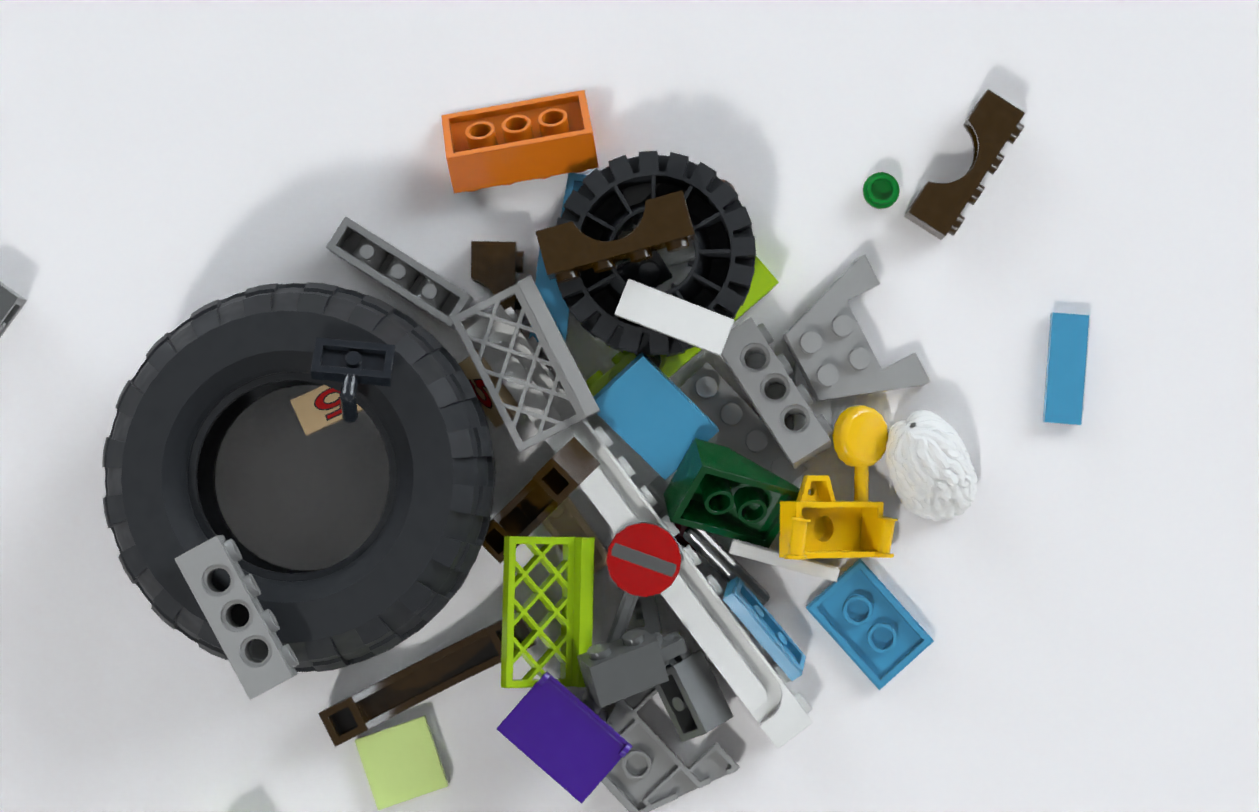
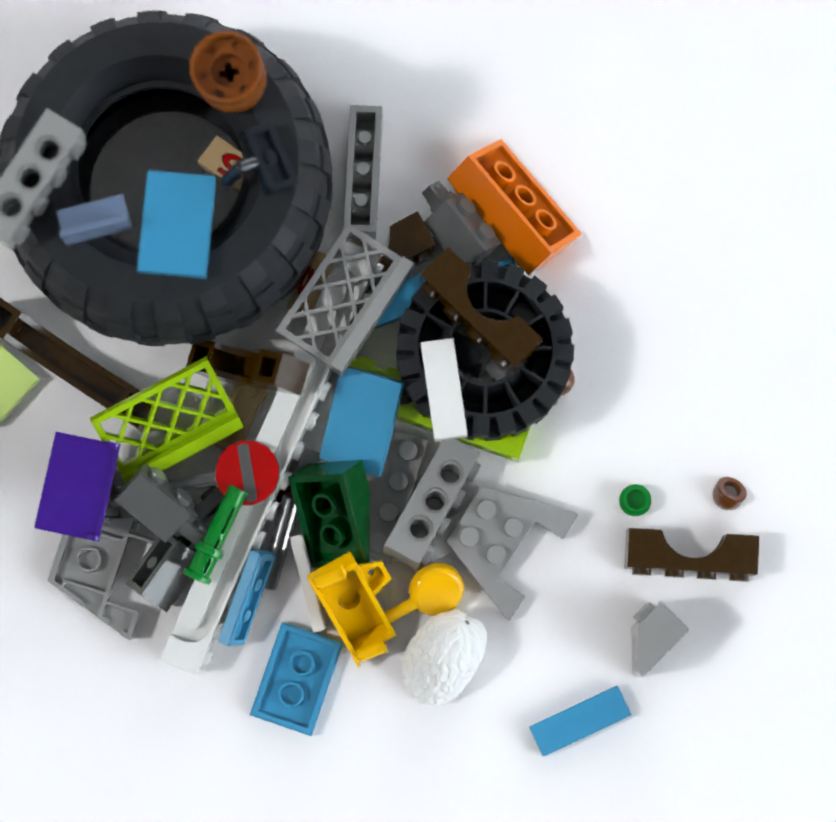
camera: 60 degrees right, 5 degrees down
(220, 362) = (210, 68): none -> dark orange wheel
(314, 573) = (94, 220): none -> sand blue panel
(366, 492) = (176, 224): none -> dark azure tile
(508, 208) = (458, 225): none -> dark grey hinge
(699, 638) = (209, 549): none -> green pin
(928, 103) = (723, 499): none -> reddish brown piece
(1029, 250) = (653, 636): none -> light grey slope

